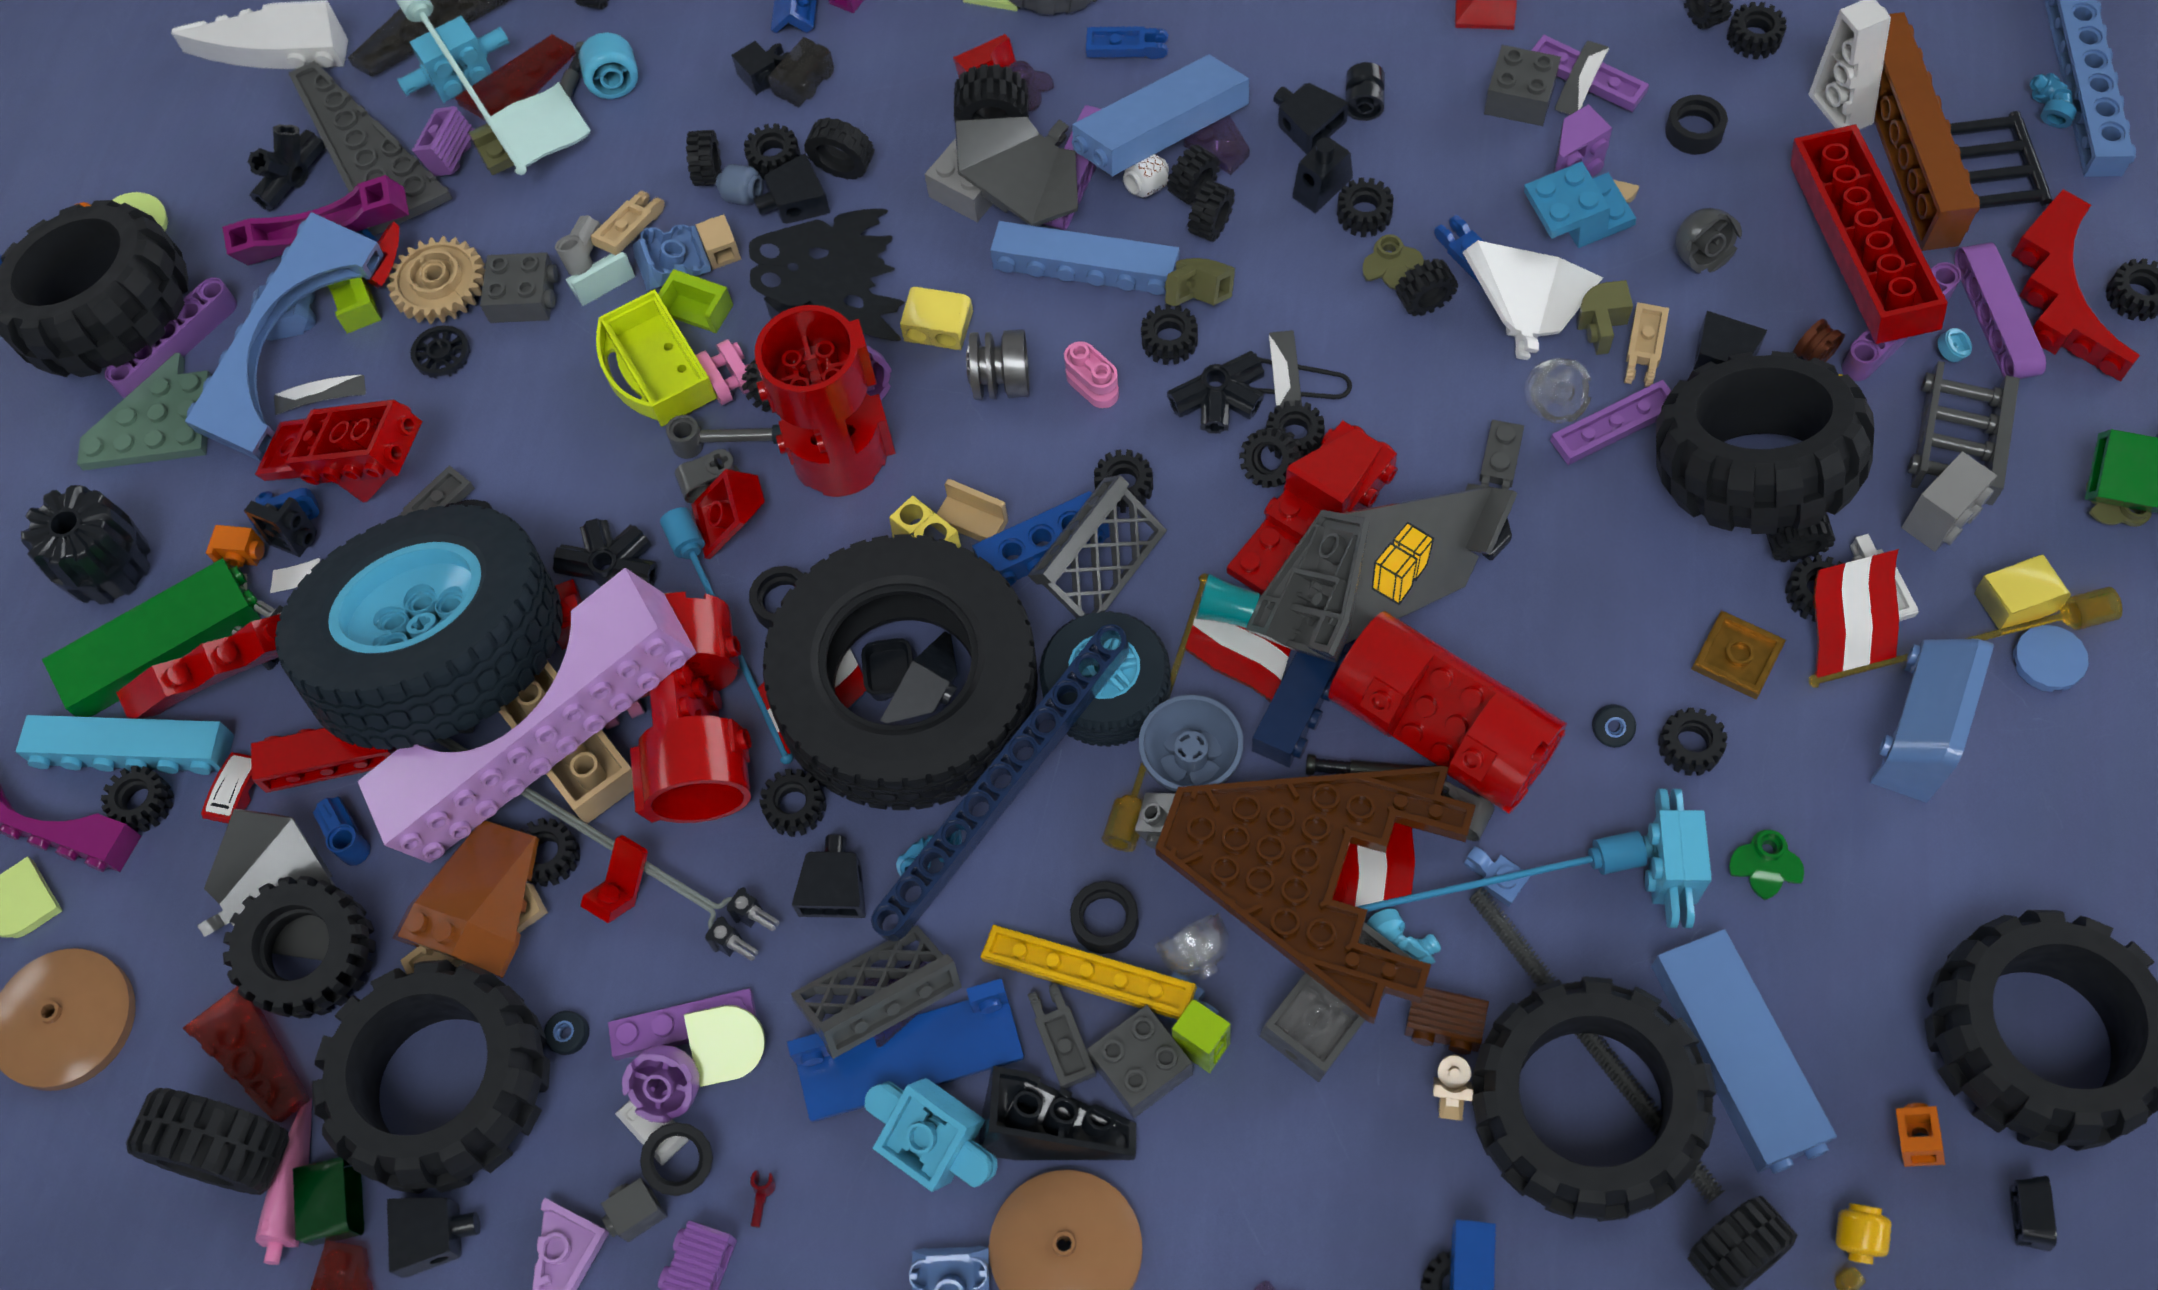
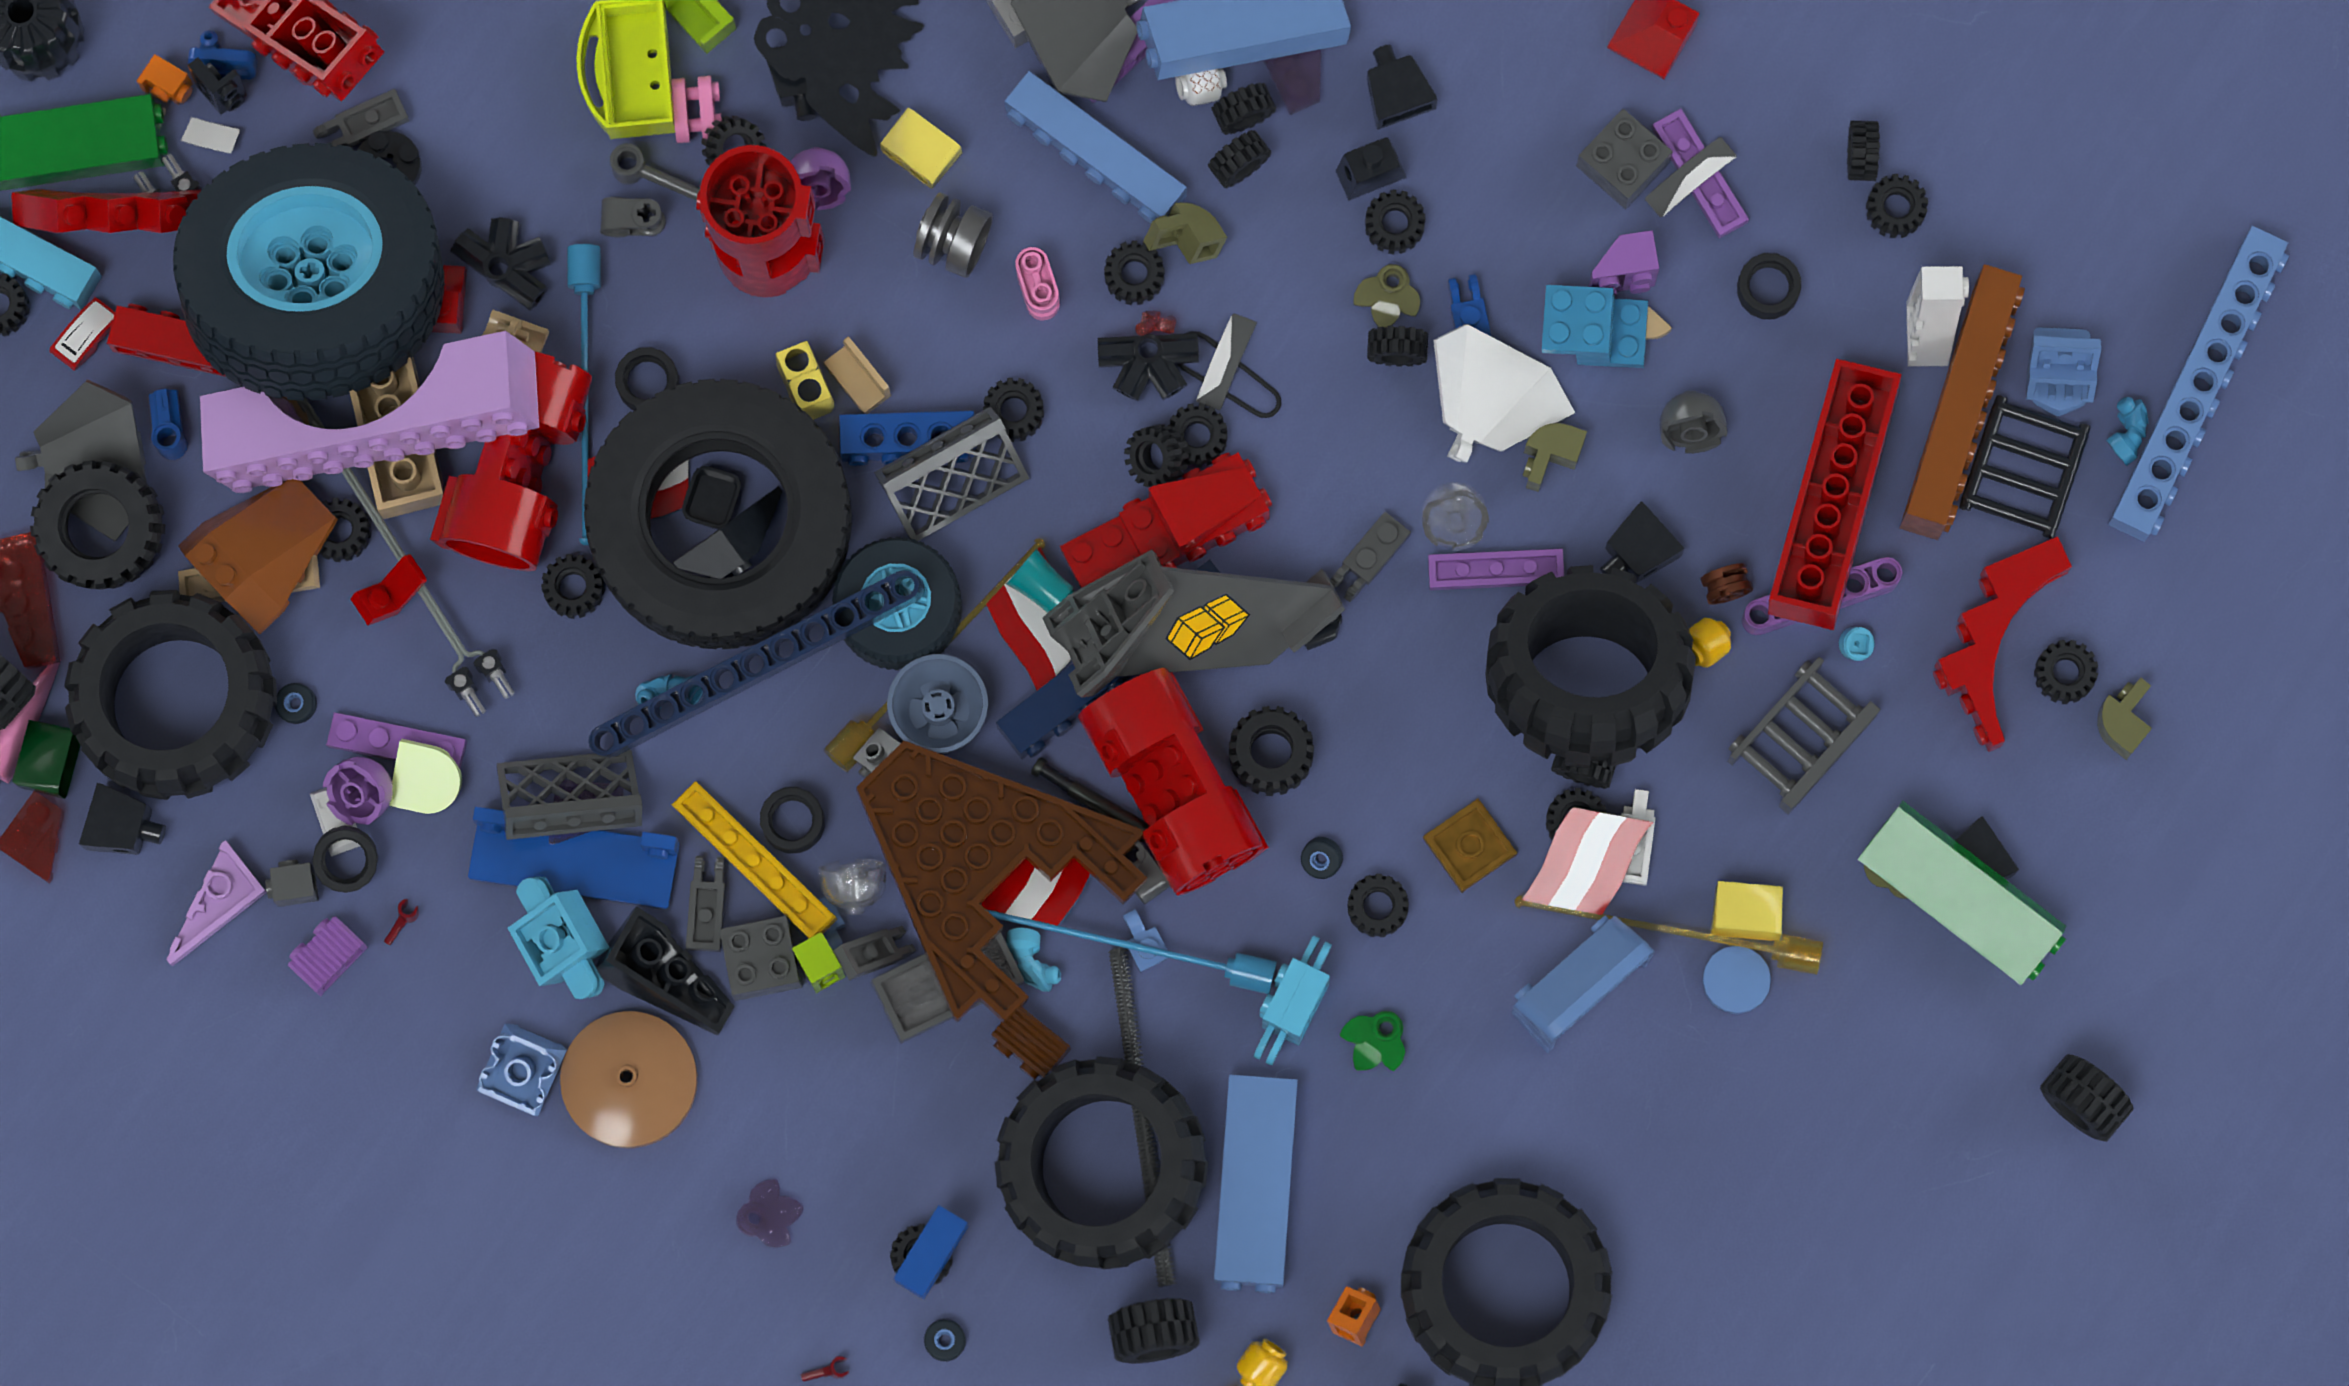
camera: 20 degrees right, 15 degrees up
(726, 508) = (634, 264): red slope -> none
(830, 883) = (574, 677): black torso -> none
(1206, 359) = (1152, 321): none -> clear red bar
(1249, 1000) = (872, 952): none -> dark grey hinge
(1365, 91) = (1463, 93): black wheel -> none
(1453, 1087) = (998, 1101): tan hips -> none
(1521, 627) = (1271, 722): none -> black tyre
(1646, 341) = (1575, 499): tan hinge -> none
(1950, 502) = (1735, 798): light grey brick -> none
(1973, 76) = (2062, 369): none -> medium blue piece
(2000, 311) = (1920, 629): medium lavender beam -> none

